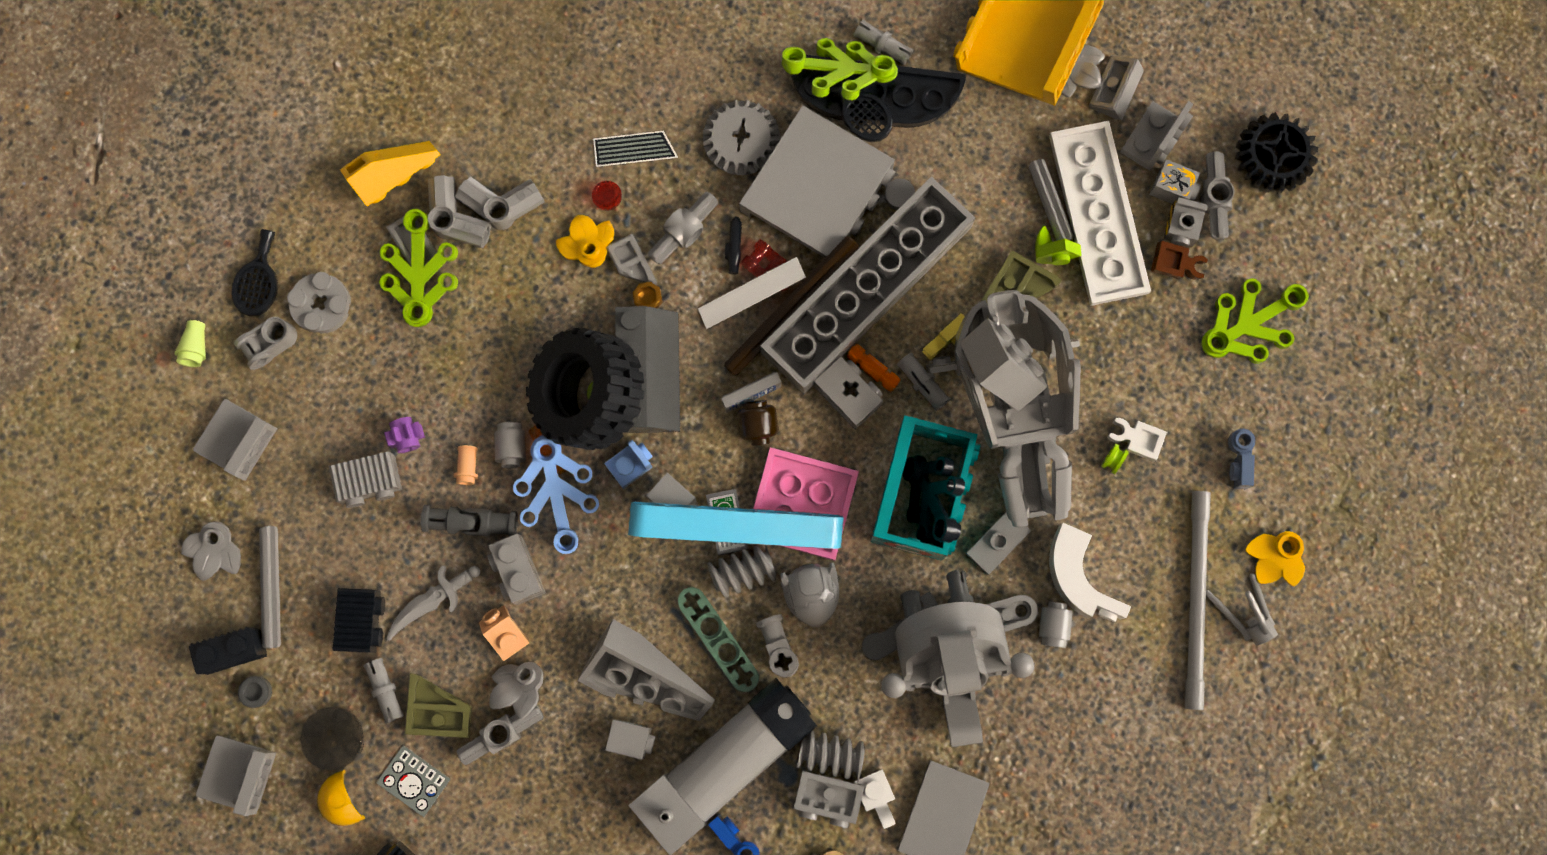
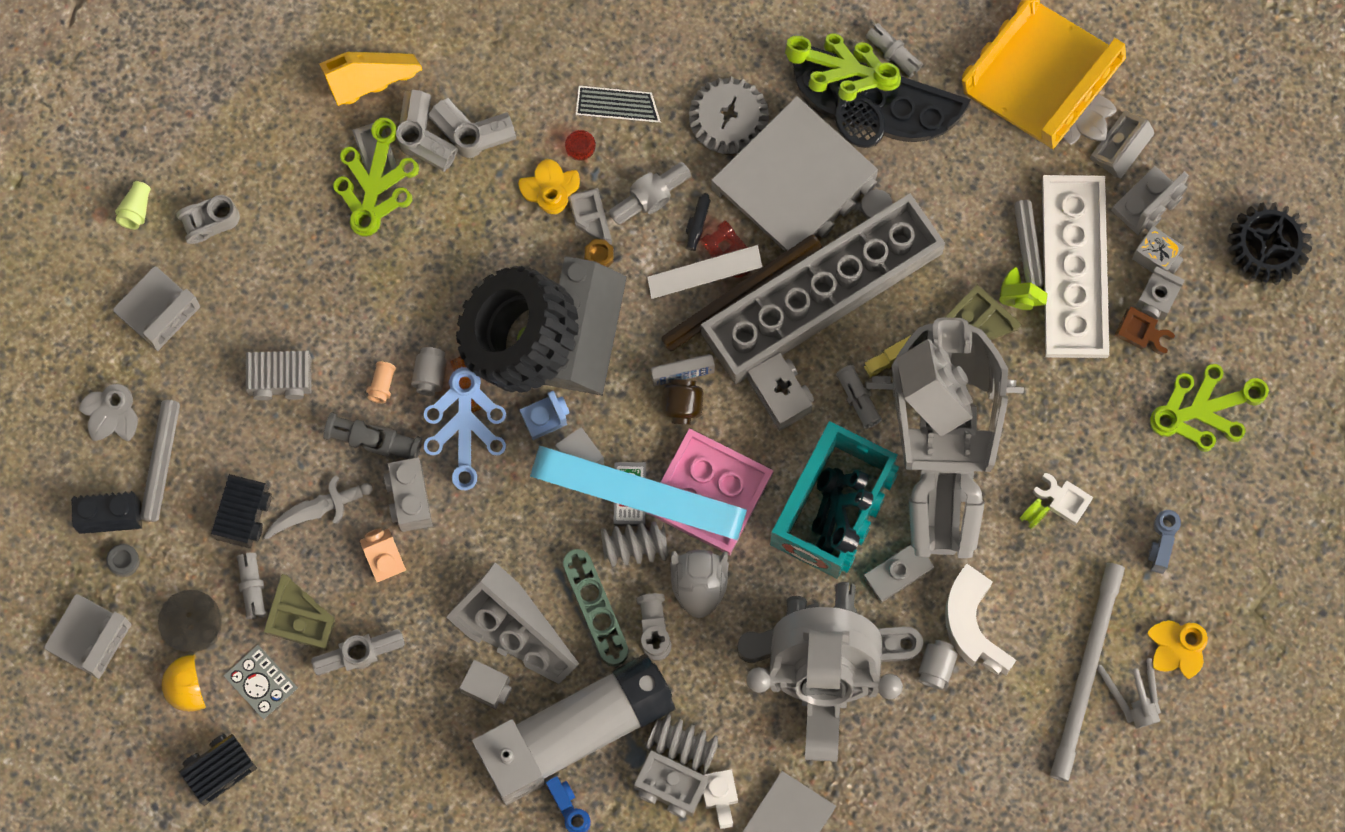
camera: 10 degrees right, 5 degrees down
(266, 238) = (226, 123): black piece -> none
(302, 299) = (274, 175): light grey plate -> none
(404, 435) = (326, 339): medium lavender gear -> none
(515, 690) = (383, 610): light grey plate -> none
(873, 367) = (811, 372): orange axle -> none
(1217, 209) = (1197, 287): light grey axle -> none

